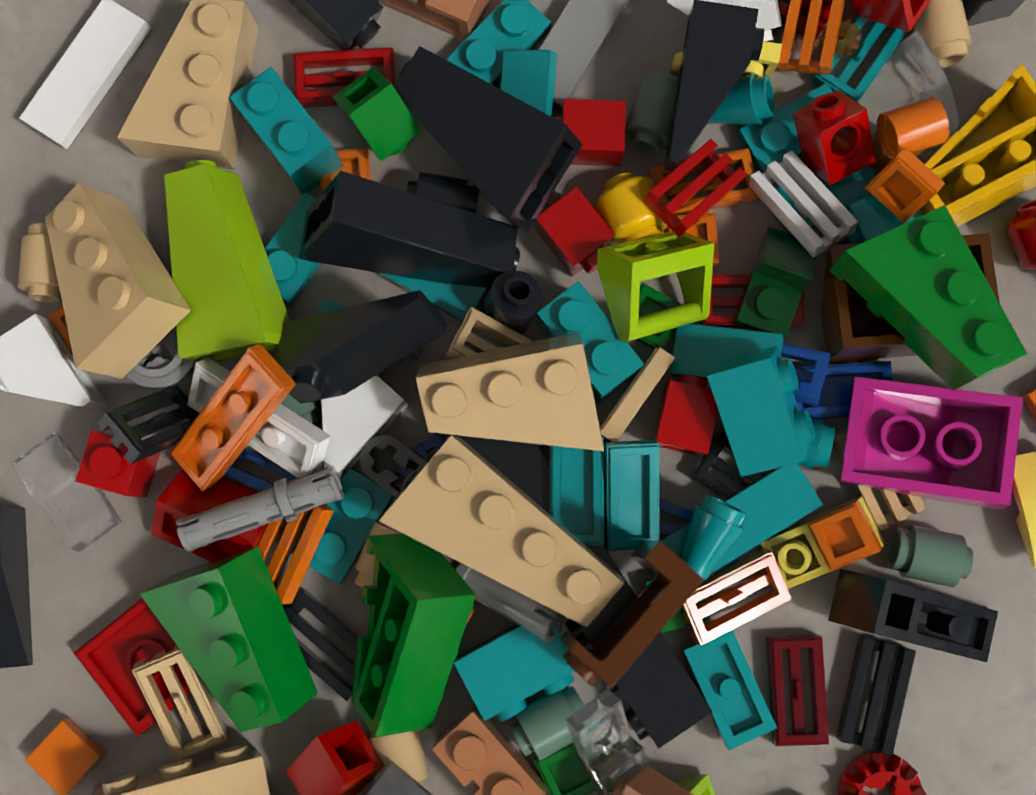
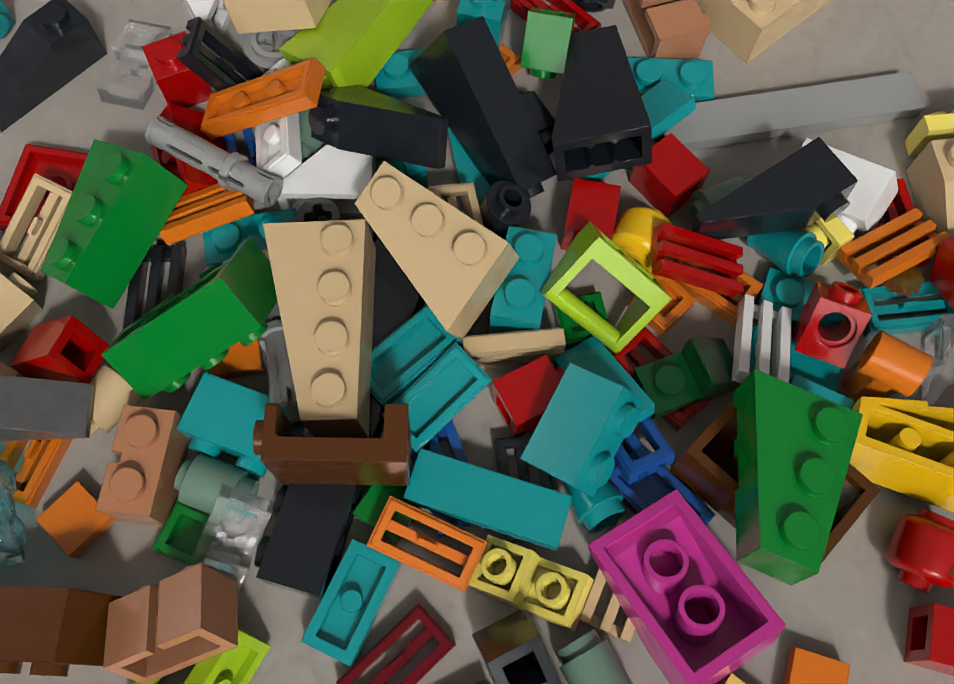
camera: 45 degrees right, 15 degrees down
(711, 533) = (457, 473): teal cone -> none
(844, 535) = (548, 584): orange tile -> none
(904, 185) = (851, 386): orange tile -> none

